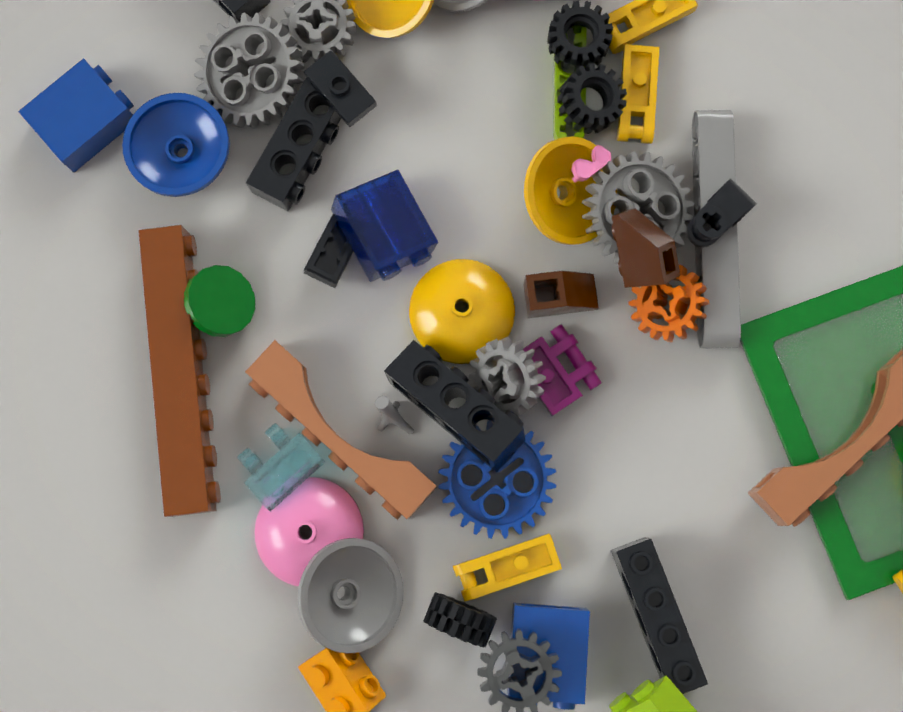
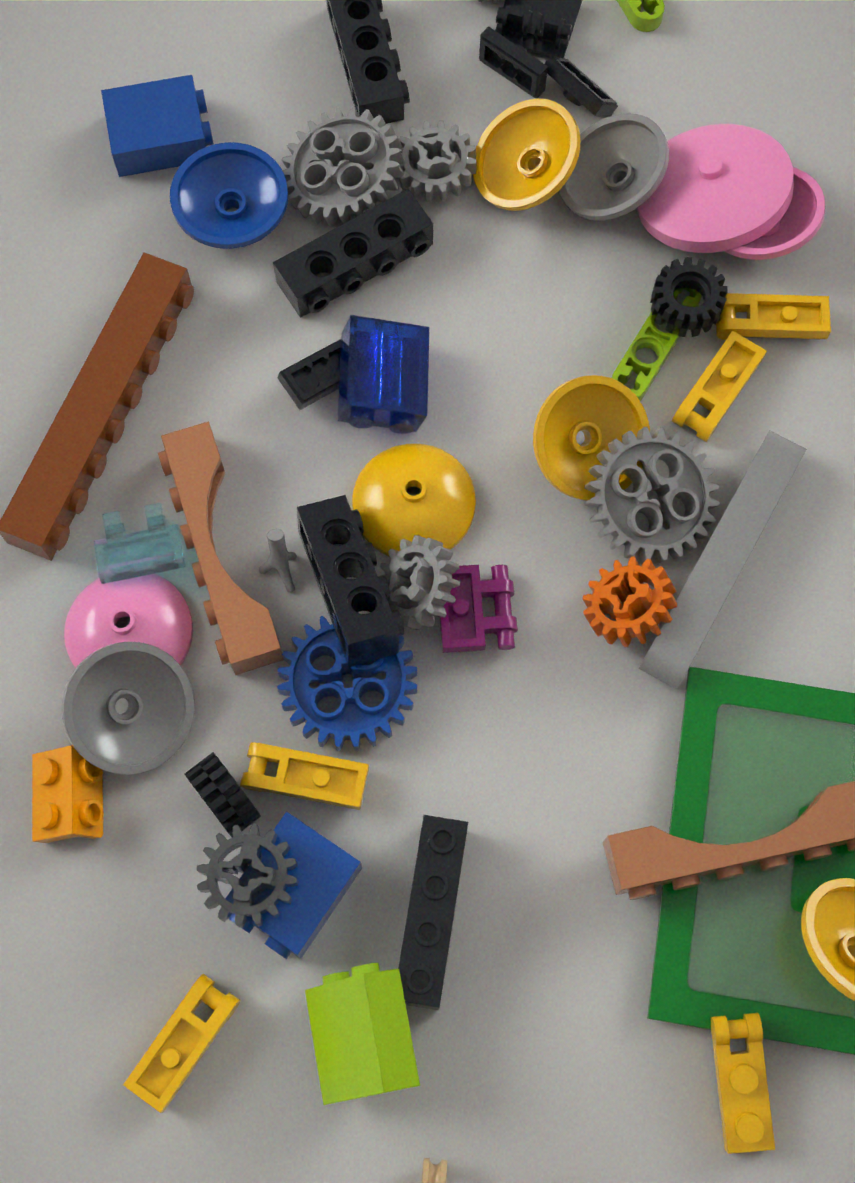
camera: 25 degrees right, 10 degrees down
(219, 301) = (179, 359): green tile -> none
(340, 88) = (418, 222): black plate -> none
(559, 293) = (521, 532): reddish brown slope -> none
(585, 169) = (616, 421): bright pink piece -> none
(604, 85) = (683, 350): black tyre -> none
(644, 250) = (629, 527): reddish brown slope -> none
(721, 213) = (737, 536): black piece -> none

